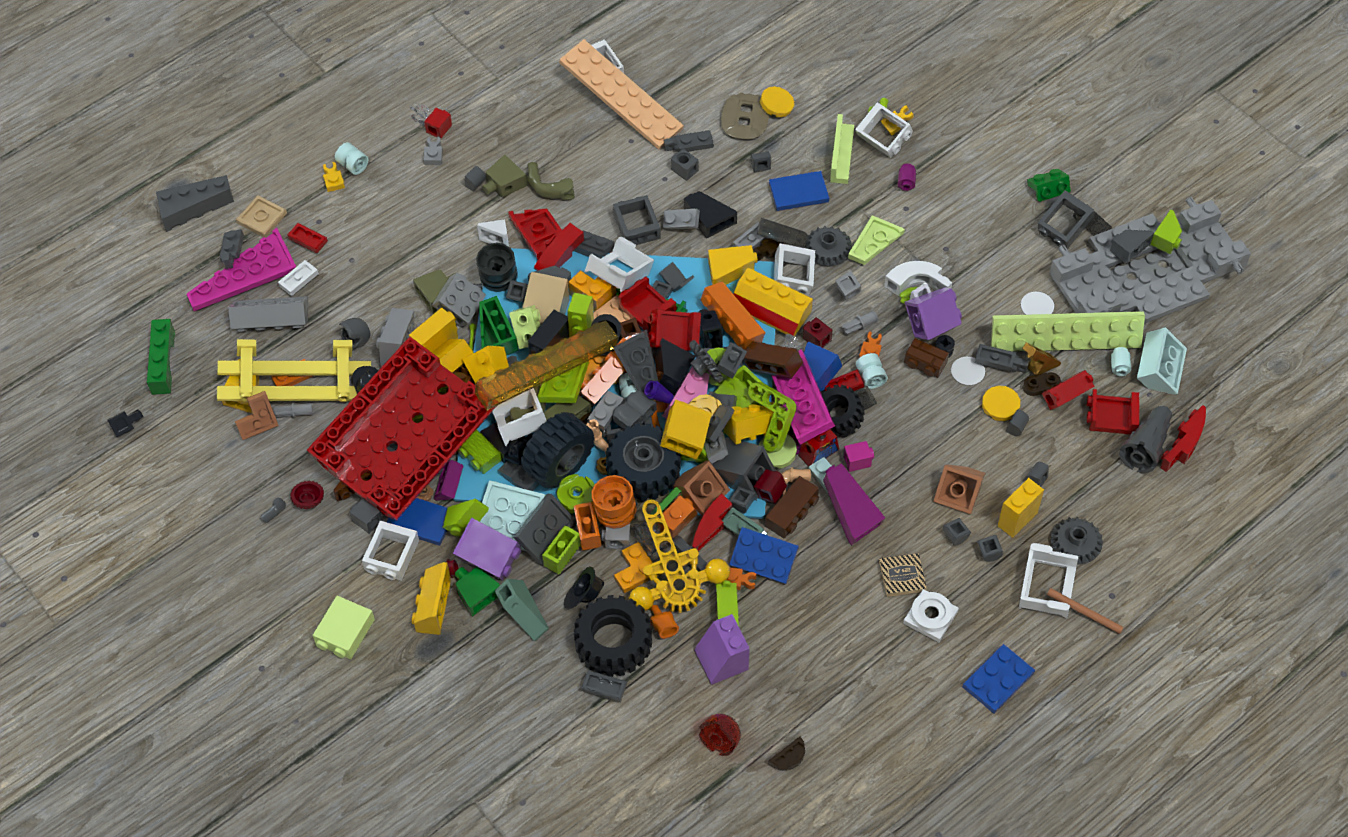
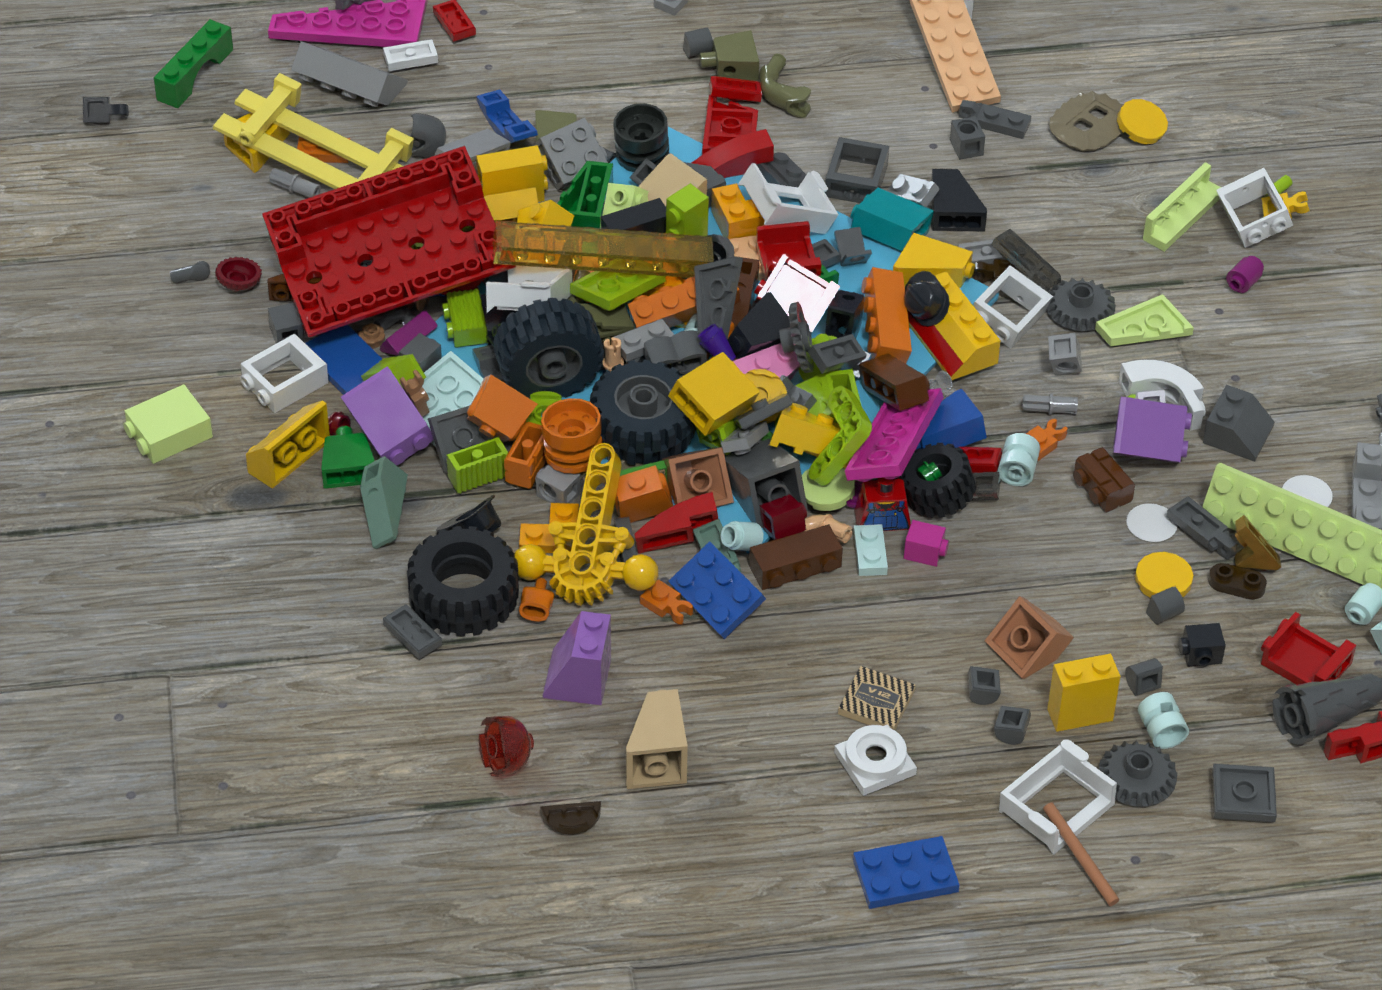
camera: 30 degrees right, 10 degrees down
(261, 419) = (250, 174): nougat plate -> none
(394, 296) = (502, 119): none -> blue slope
(471, 489) = (425, 351): none -> dark grey brick
(492, 521) = (416, 392): none -> medium nougat plate
(493, 232) = (676, 106): white slope -> none
(521, 200) = (735, 89): none -> red plate
(555, 507) = (499, 409): none -> orange torso
(683, 245) = (890, 218): none -> teal brick
(727, 600) = (630, 620): lime brick -> none
(742, 499) = (737, 511): dark grey brick -> none
(749, 291) = (926, 299): none -> black piece
(757, 511) = (741, 535): none -> light aqua brick
(761, 161) = (1068, 176): dark grey brick -> none
(798, 190) = (1092, 229): blue tile -> none
(810, 677) = (658, 743): none -> tan slope
(817, 332) = (984, 389): dark red brick -> none
(835, 410) = (929, 471): none -> green plate
(853, 506) = (871, 590): magenta slope -> none
(944, 340) = (1142, 475): black wheel -> none
(972, 280) = (1238, 424): none -> dark grey slope
(1055, 437) = (1202, 644): none -> black brick
(1068, 389) = (1264, 599): red brick -> none
(1070, 499) = (1163, 720): none -> light aqua wheel
(1141, 520) = (1244, 792): none -> dark grey plate

